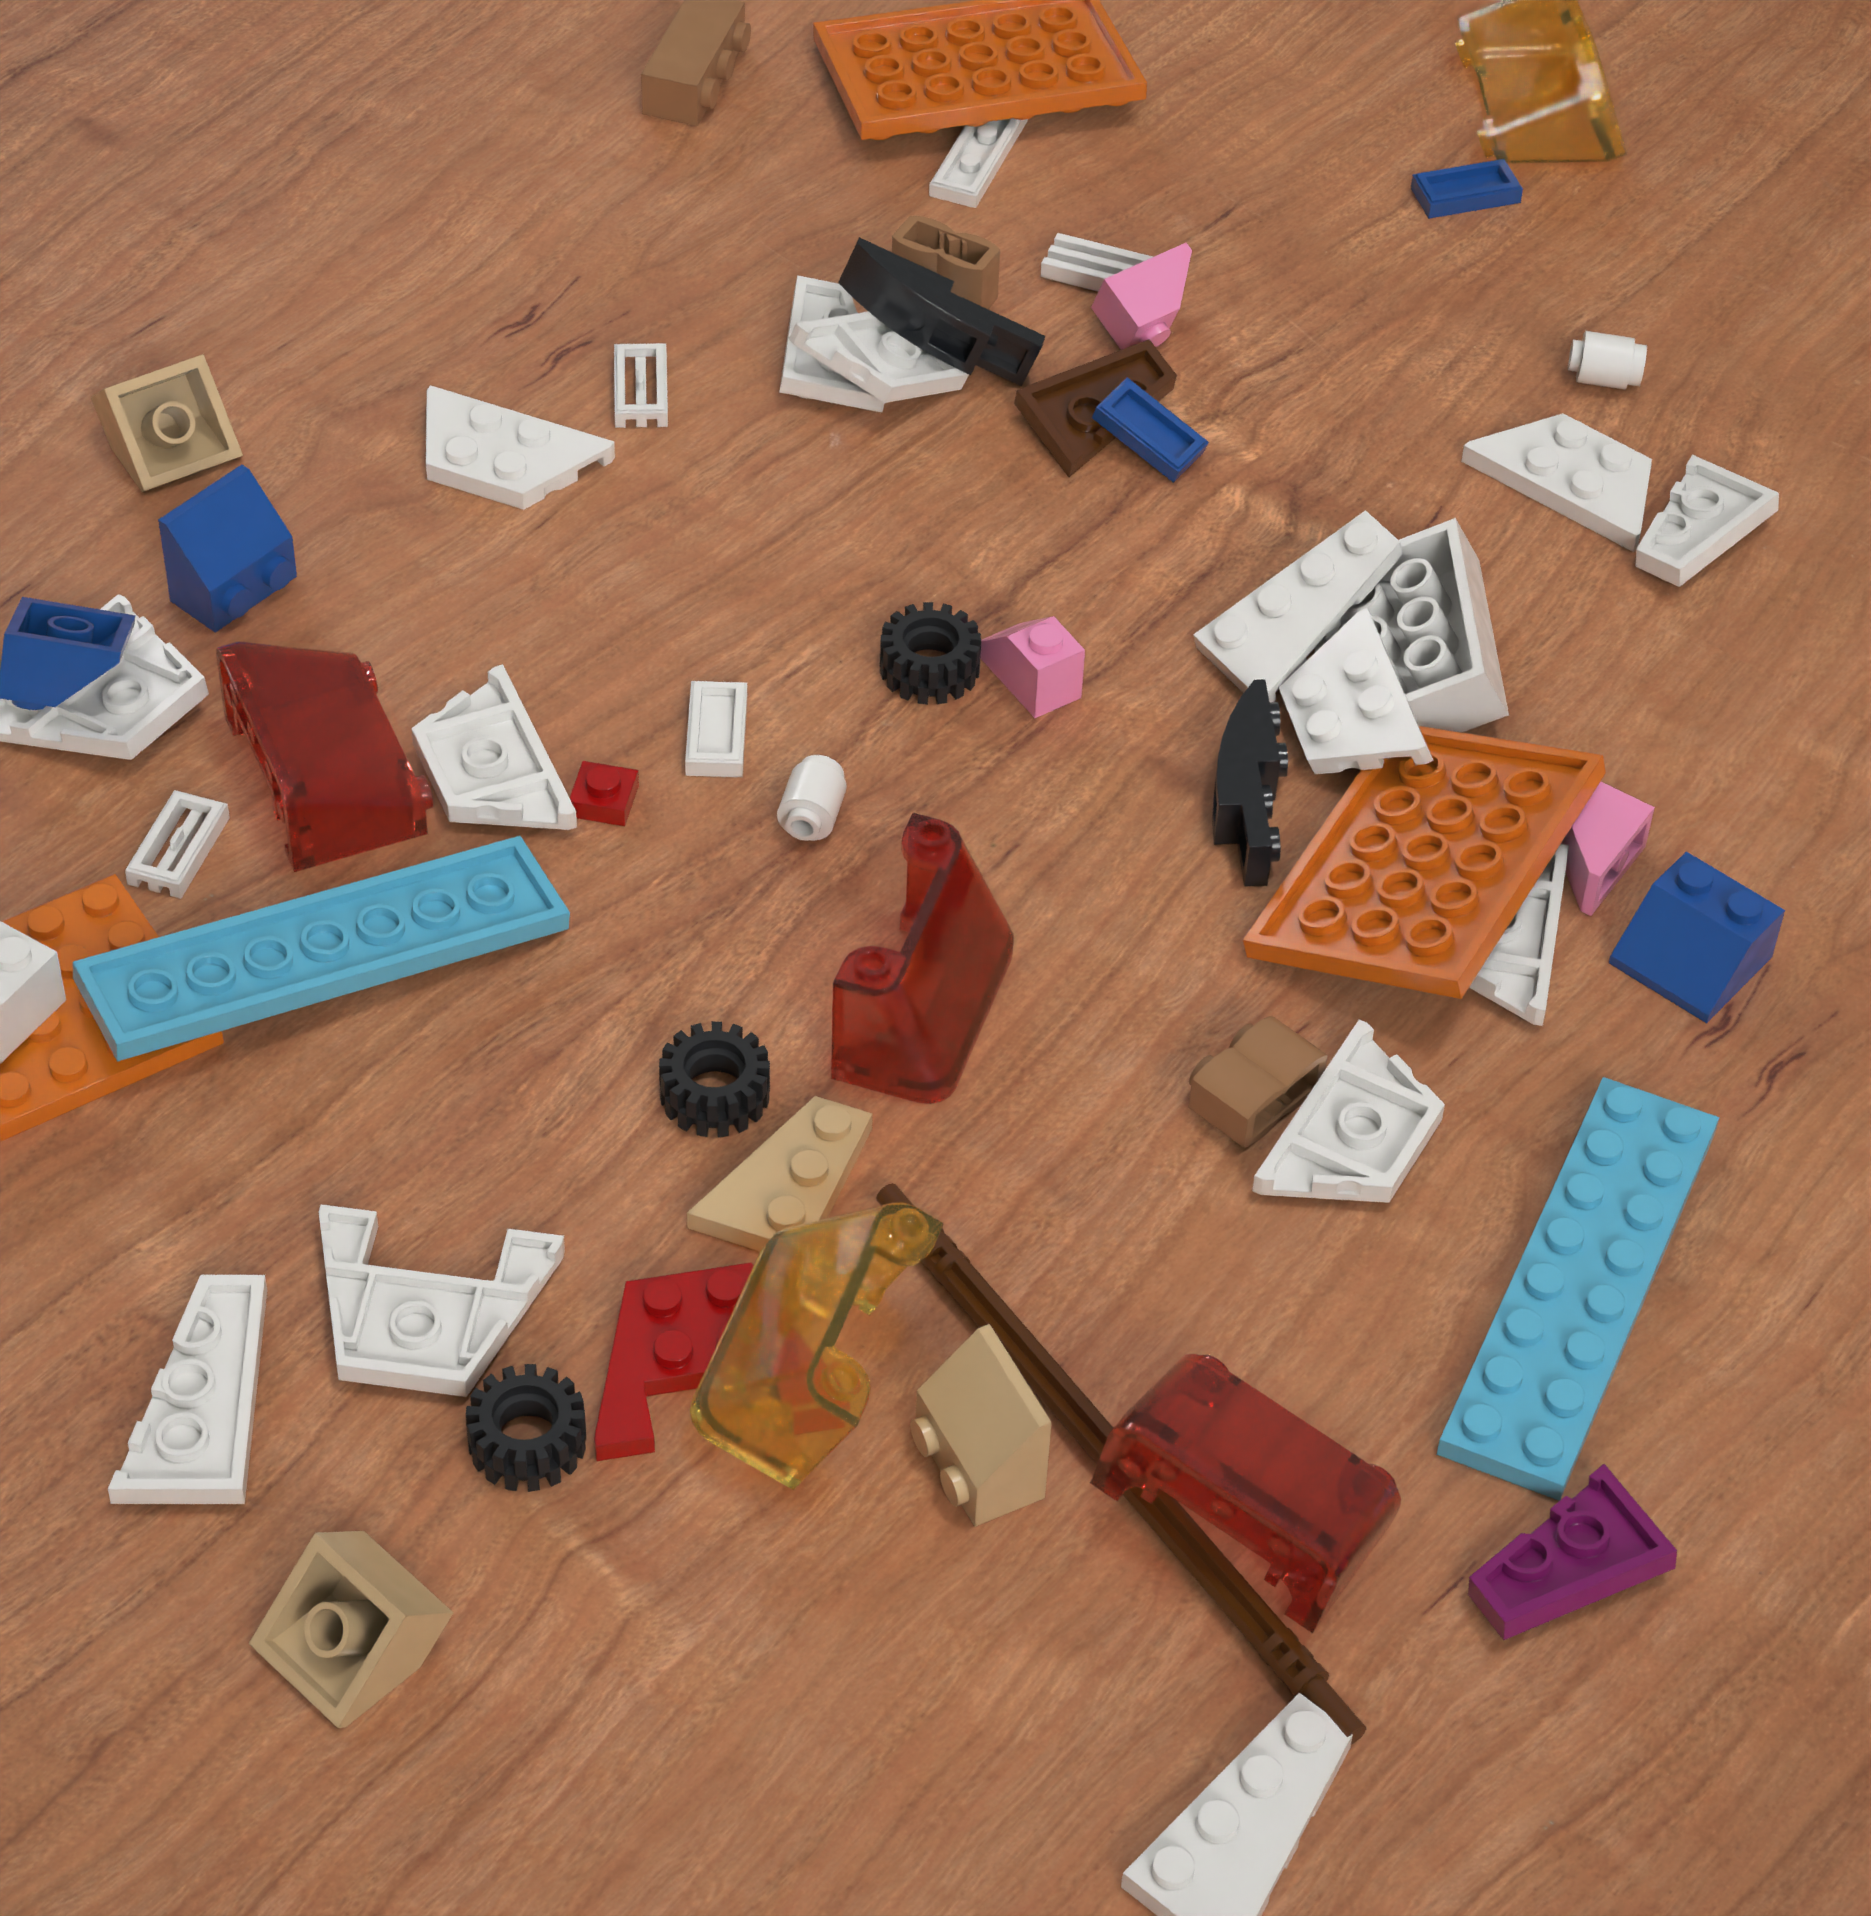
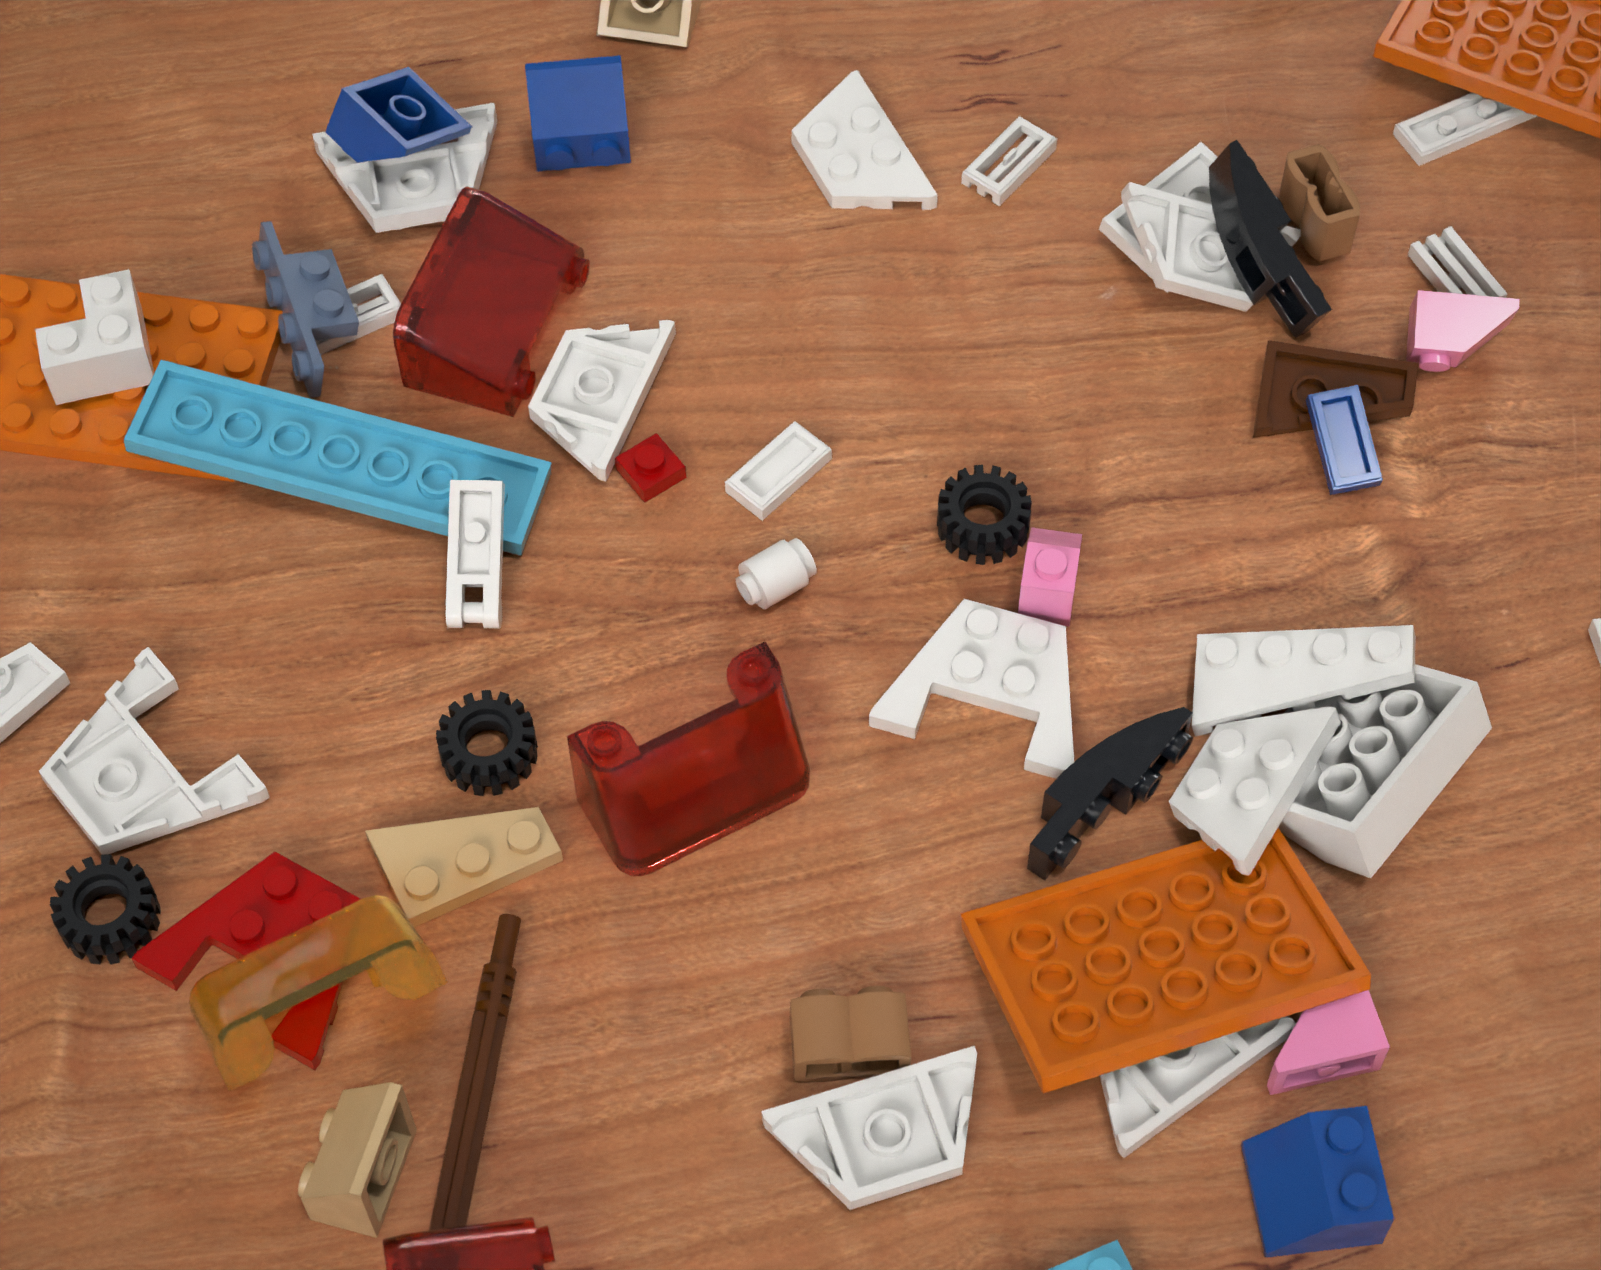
camera: 45 degrees right, 10 degrees up
(140, 845) = (312, 302): none -> sand blue bracket
(543, 938) = (475, 552): none -> white plate
(1070, 753) = (993, 663): none -> white wing

